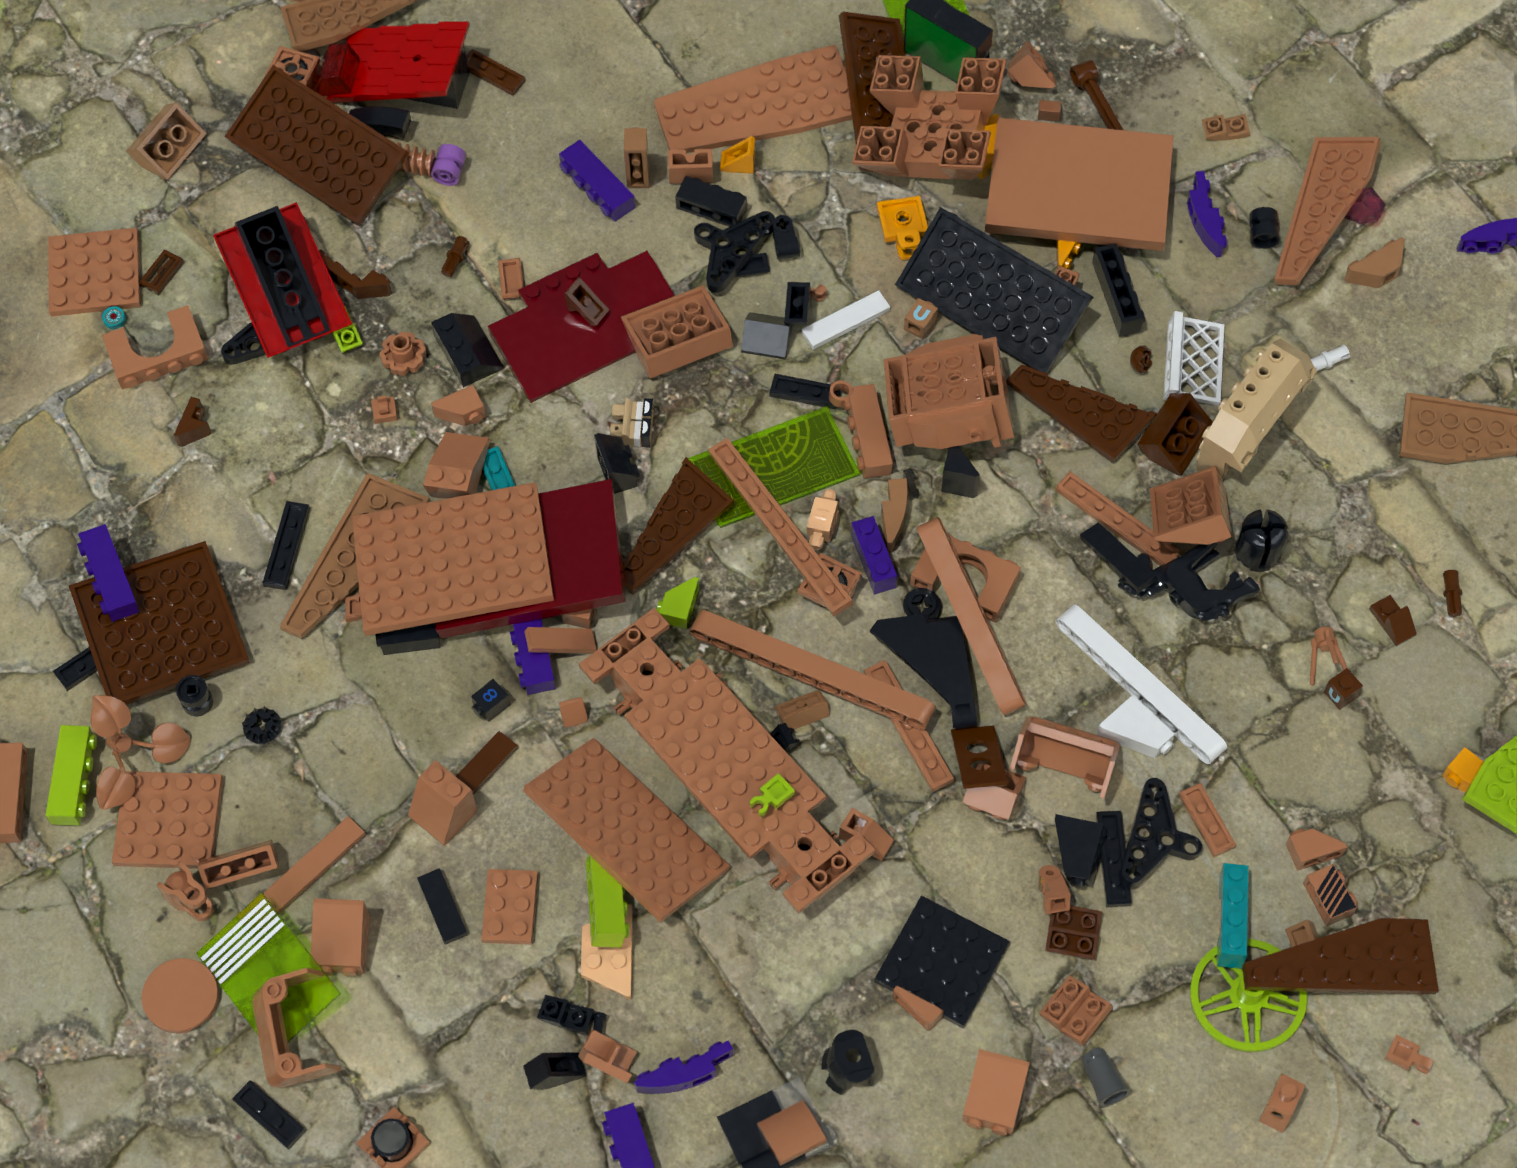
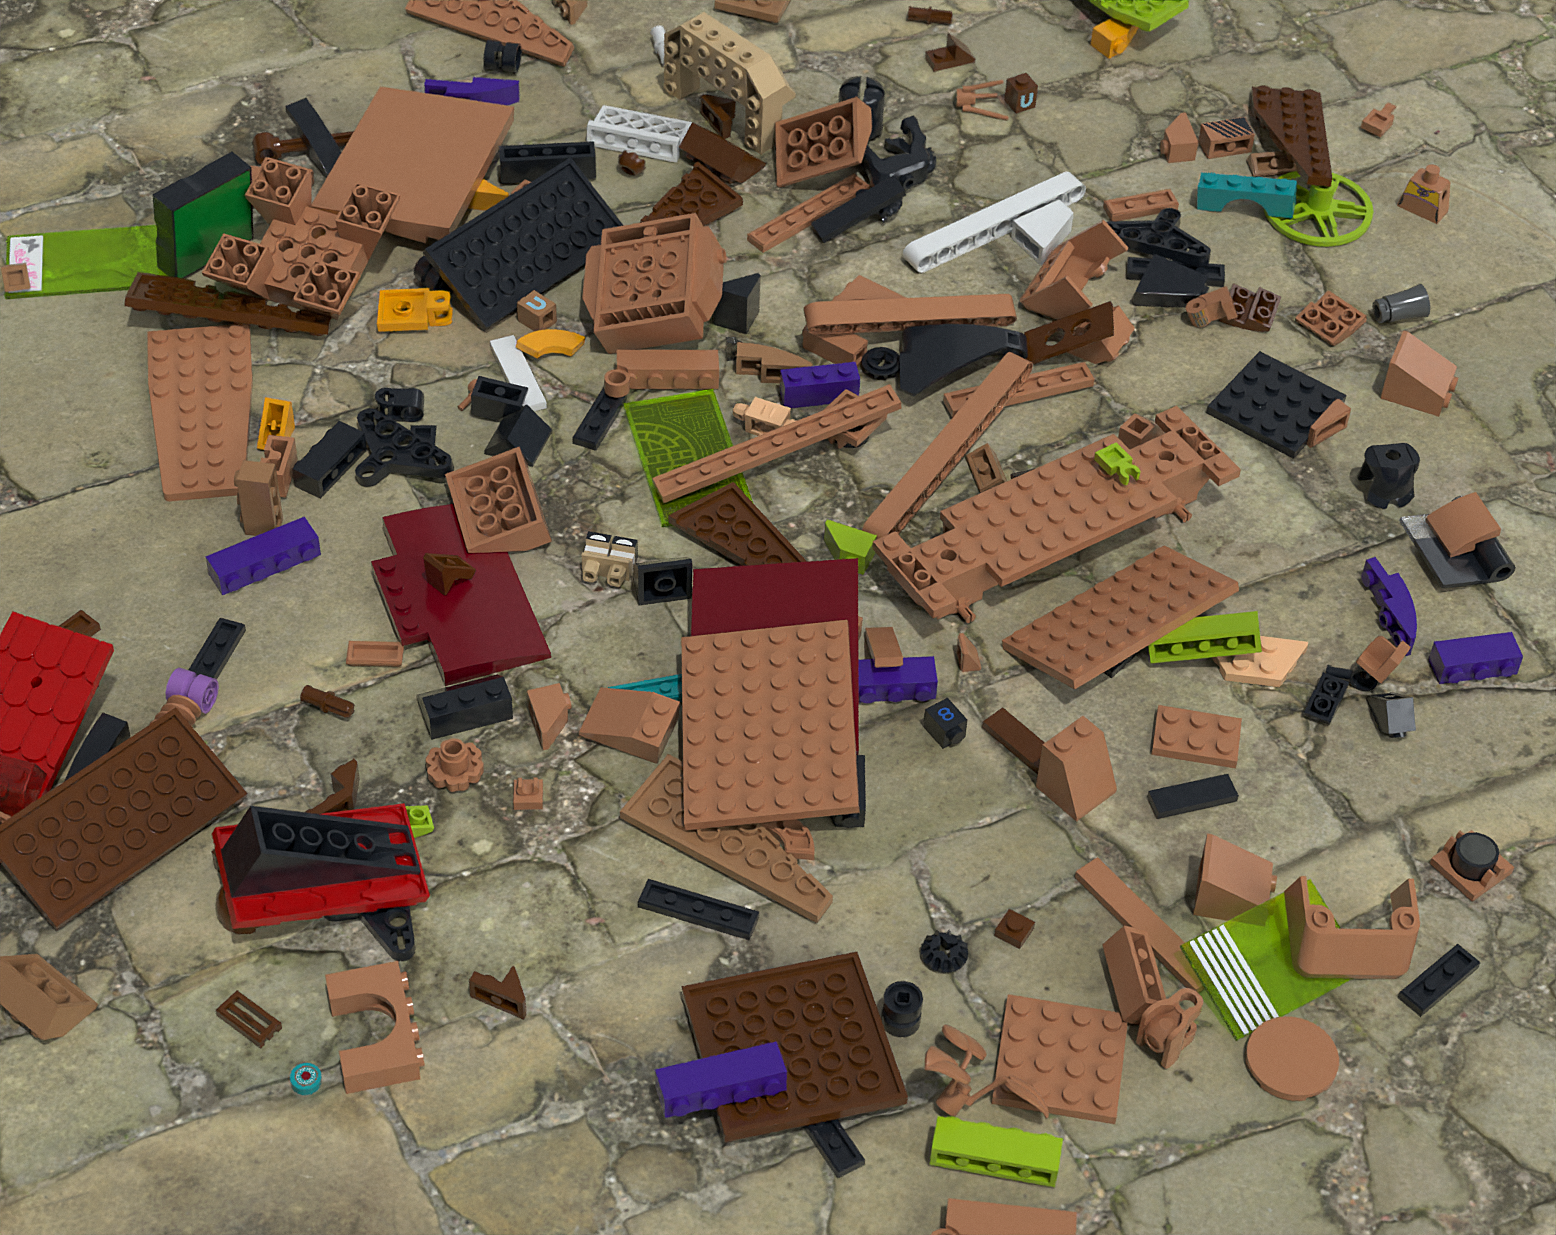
camera: 85 degrees left, 15 degrees down
(93, 271) = (222, 1099): nougat plate -> none
(289, 775) = (1014, 928): none -> reddish brown plate
(496, 173) = (218, 648): none -> black tile
(886, 334) = (550, 341): none -> light orange tile
(1102, 100) = (314, 134): none -> black slope
(1226, 129) = (369, 65): medium nougat slope -> none

